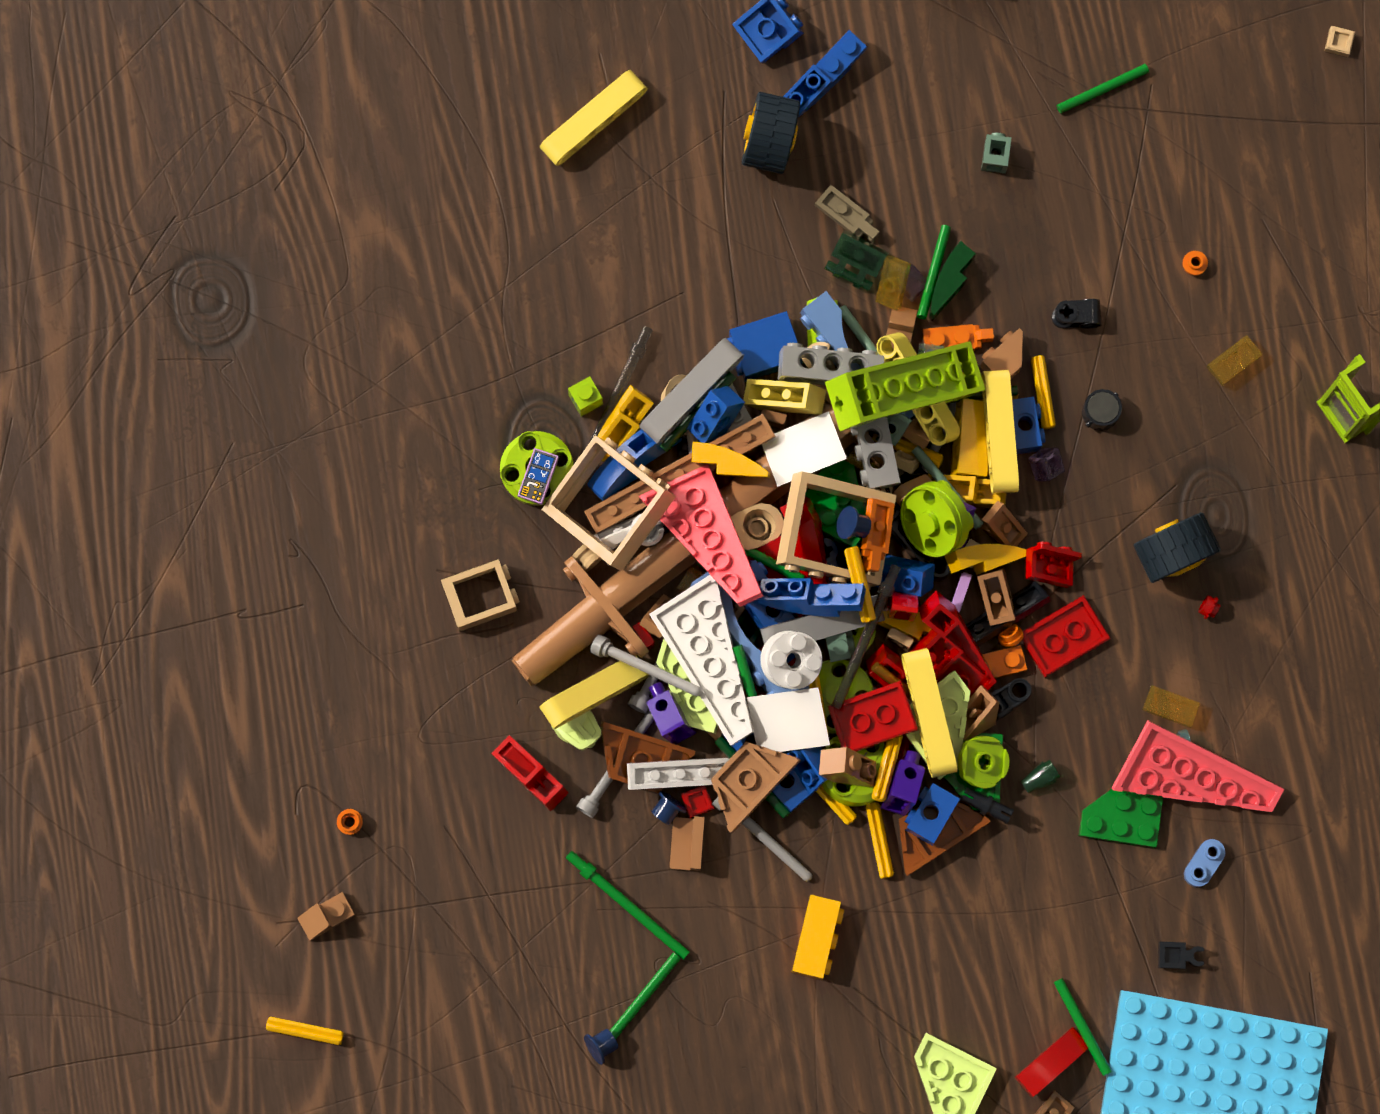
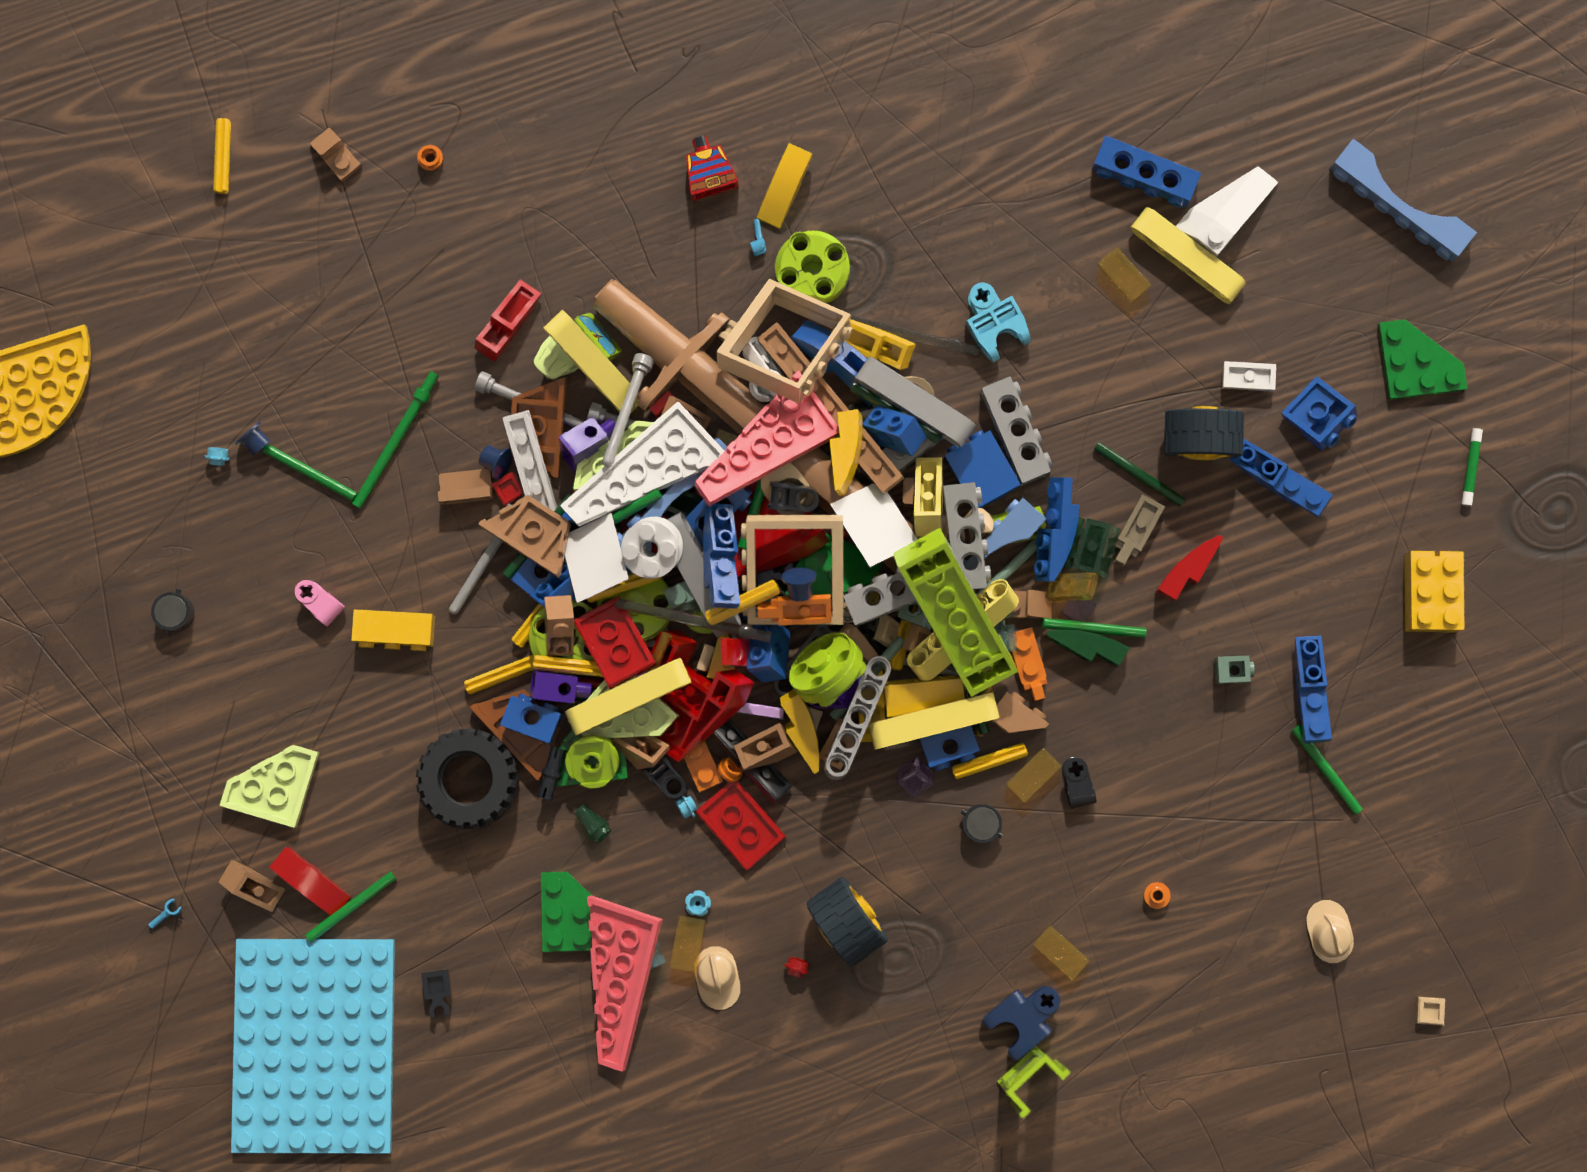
camera: 85 degrees right, 5 degrees up
(419, 550) = (709, 170): none -> torso
(450, 480) = (784, 185): none -> yellow slope
(488, 615) = (661, 216): tan window -> none
(503, 516) = (758, 246): none -> dark azure hand
(519, 106) = (1138, 159): none -> blue brick
(538, 476) = (800, 268): tile -> none
(558, 75) = (1225, 212): none -> white wedge
(561, 685) = (598, 335): none -> slope
(585, 396) = (895, 301): lime brick -> none
(600, 179) = (1124, 274): none -> clear yellow plate
(610, 308) = (1010, 322): none -> medium azure piece
(610, 1085) = (217, 456): none -> medium azure plate
(720, 85) = (1249, 376): none -> white plate
(723, 318) = (1025, 470): none -> light grey brick
(762, 524) = (790, 497): none -> black piece
(780, 1005) = (321, 604): none -> bright pink piece
(822, 175) = (1139, 474): none -> dark green bar
(844, 288) = (1057, 540): none -> blue slope
(893, 174) = (1188, 569): none -> red slope
(978, 852) = (432, 771): none -> black tyre
(995, 509) = (860, 705): none -> light grey beam
(1027, 87) = (1311, 689): none -> blue slope
(1039, 684) = (686, 806): none -> medium azure plate
(1051, 564) = (807, 797): red bracket -> none
(1063, 353) = (1033, 775): none -> clear yellow plate
(1134, 683) = (697, 910): none -> medium azure plate
(1204, 862) = (535, 1003): medium blue plate -> none
(1207, 684) = (717, 978): none -> tan piece
(1252, 115) = (1330, 931): none -> tan piece
(1289, 401) = (1026, 1016): none -> dark blue piece

